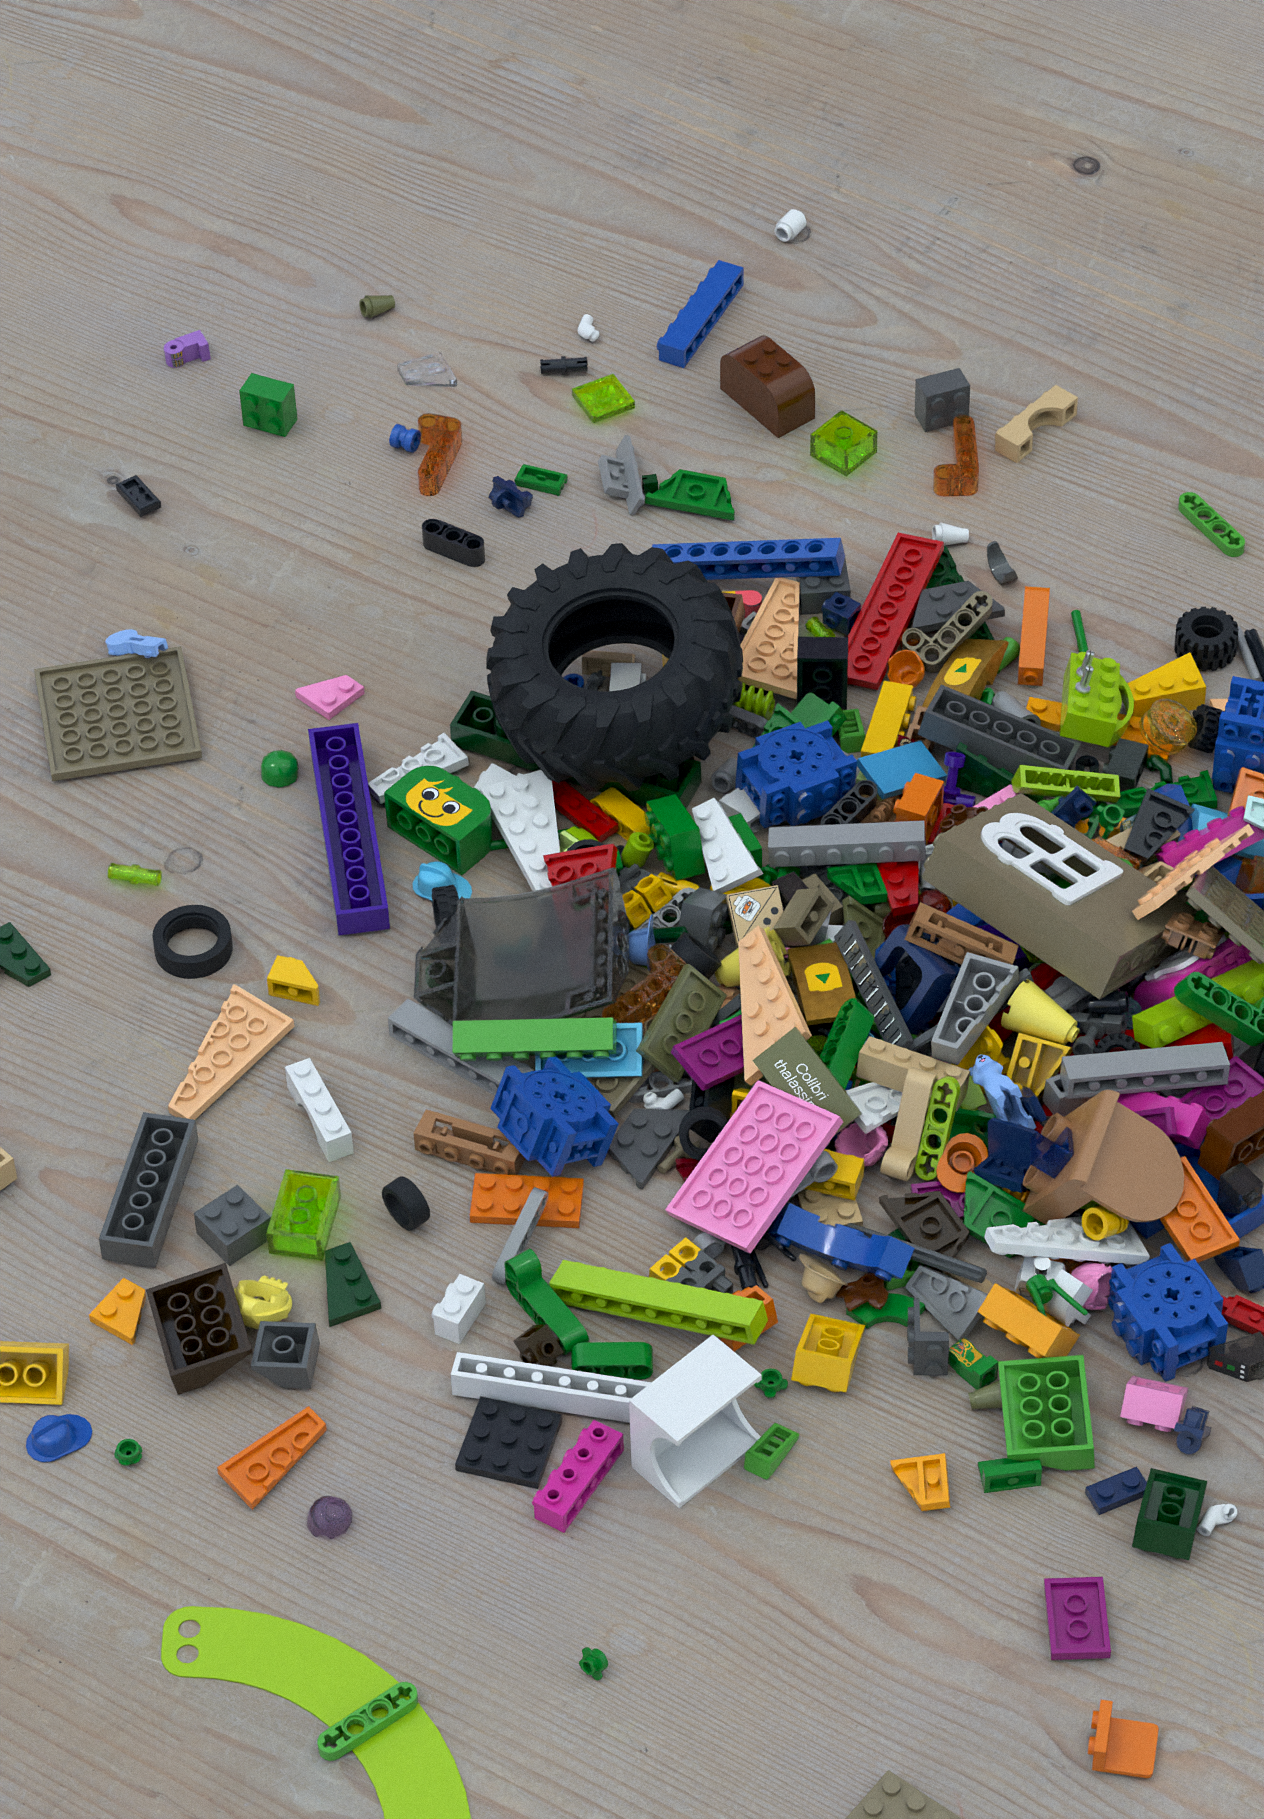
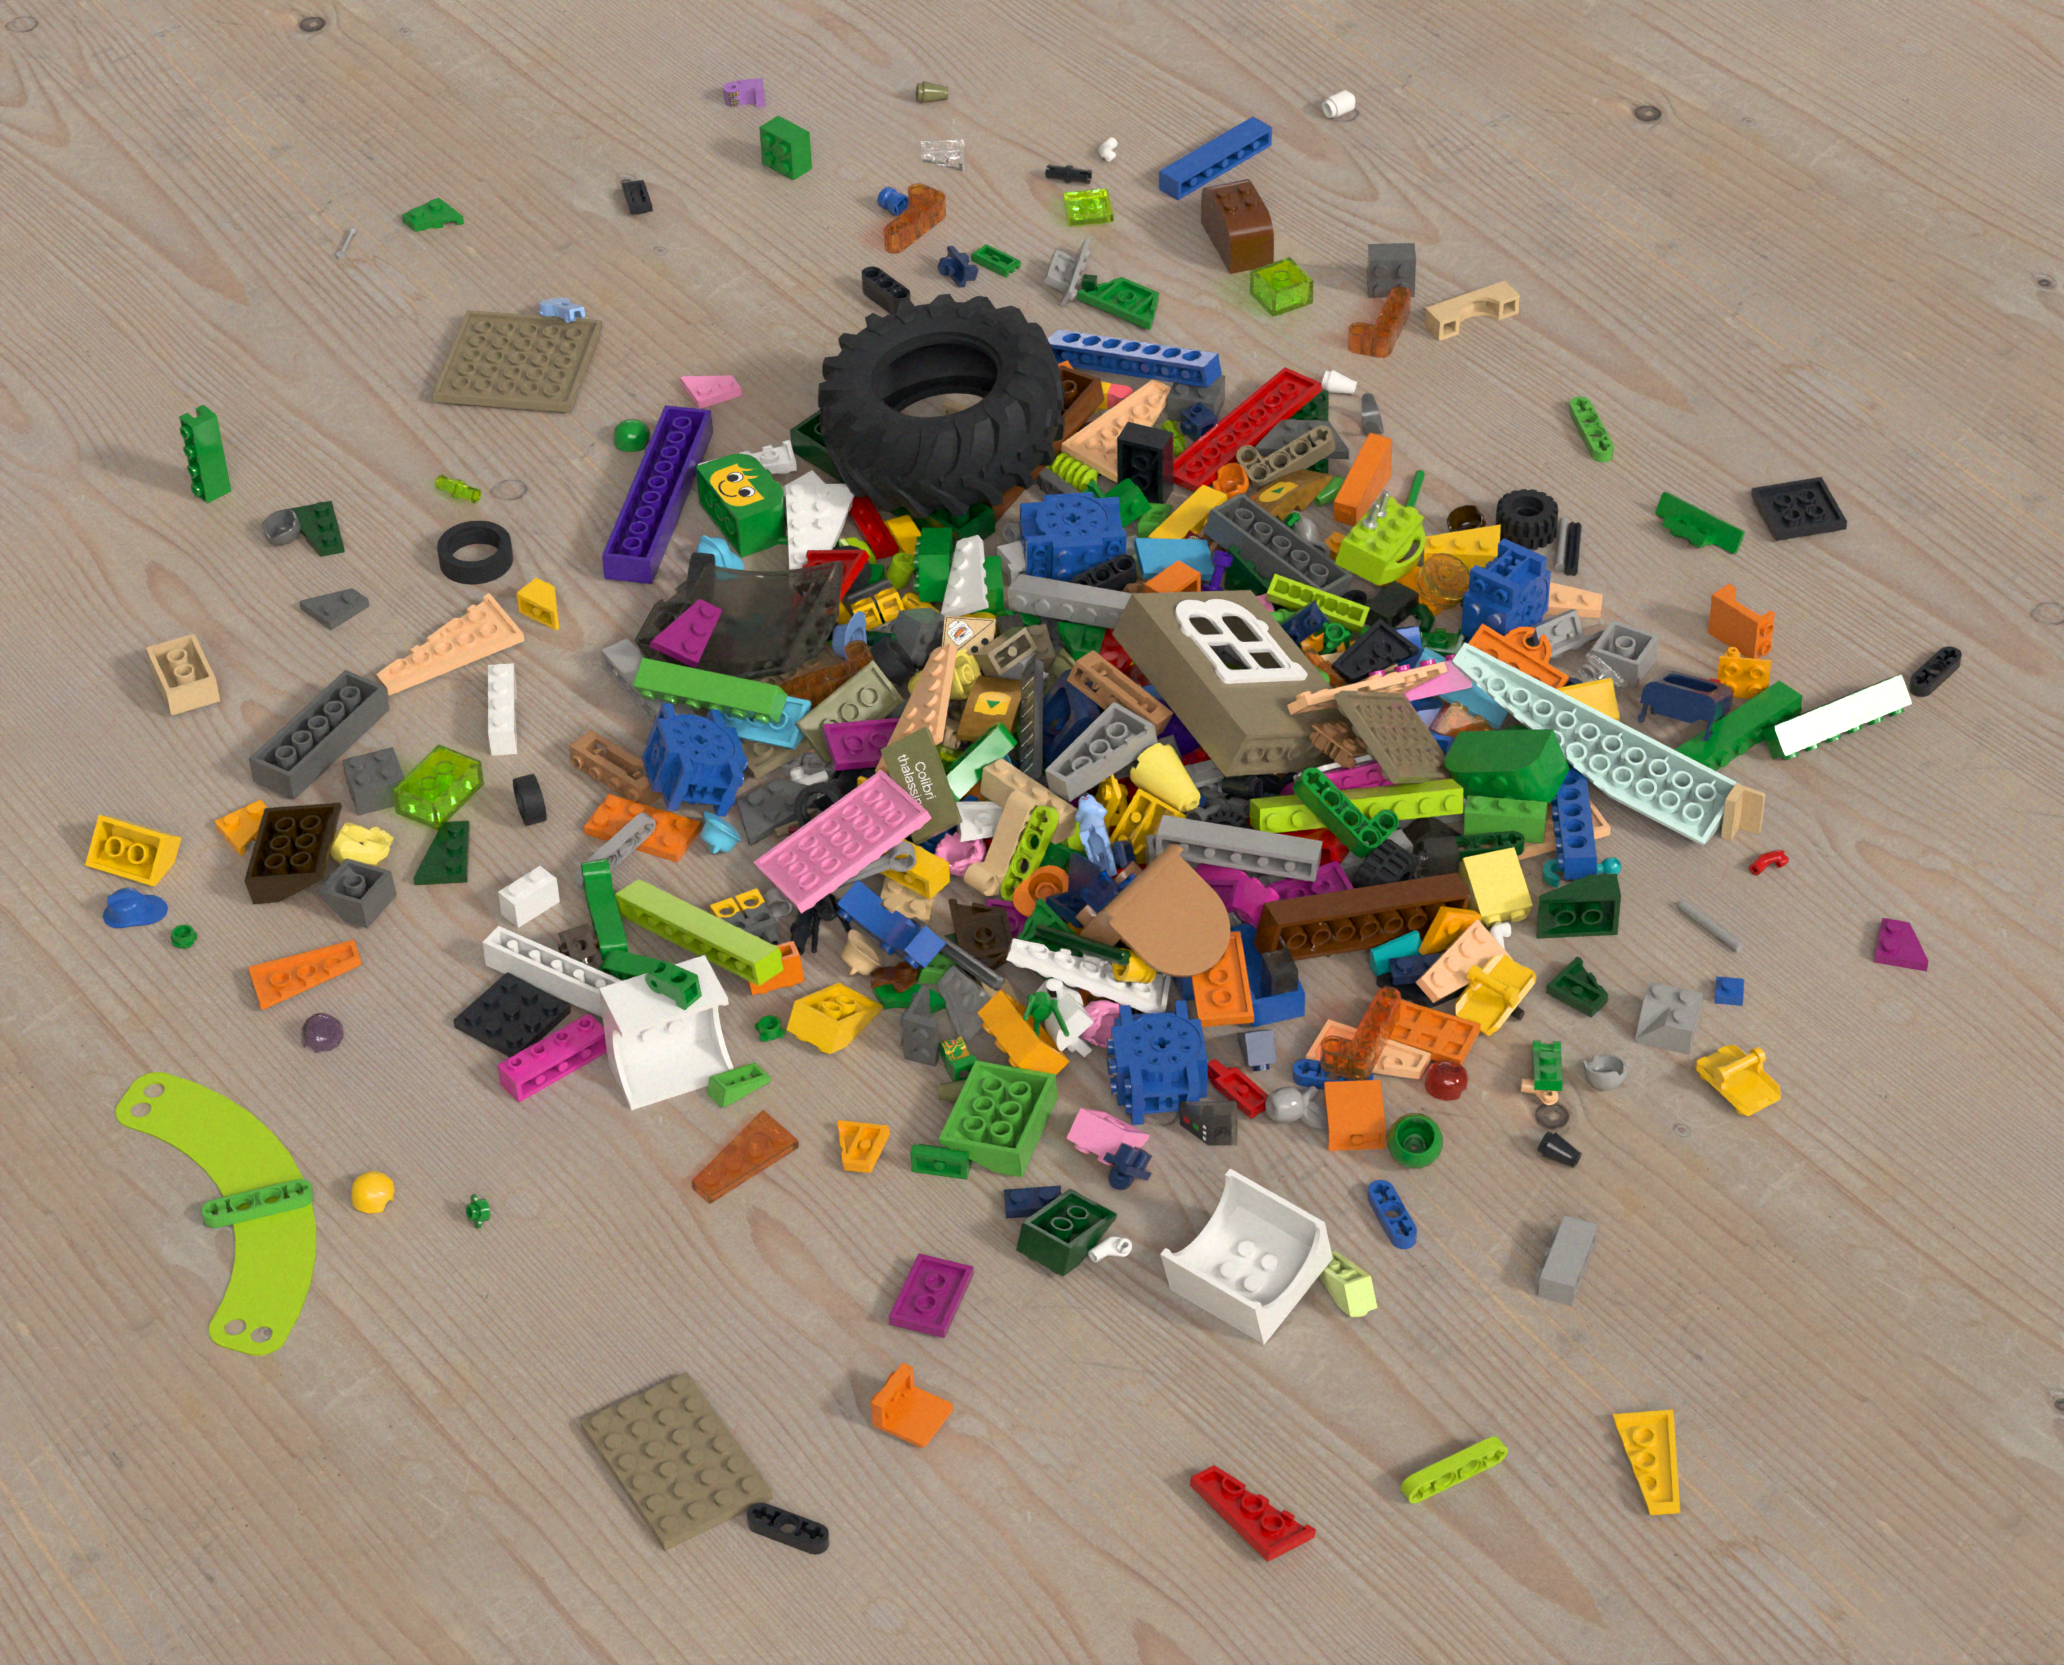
camera: 20 degrees right, 5 degrees down
(78, 1041) = (335, 607): none -> dark grey wing
(475, 1674) = (372, 1191): none -> yellow hair
(477, 979) = (688, 634): none -> magenta wing
(611, 1188) = (718, 834): none -> medium azure piece
(706, 1375) = (674, 983): none -> green leg
(820, 1523) = (748, 1154): none -> clear orange wing
(1044, 1212) = (1082, 945): none -> dark green axle
(1150, 655) = (1465, 518): none -> dark brown hair

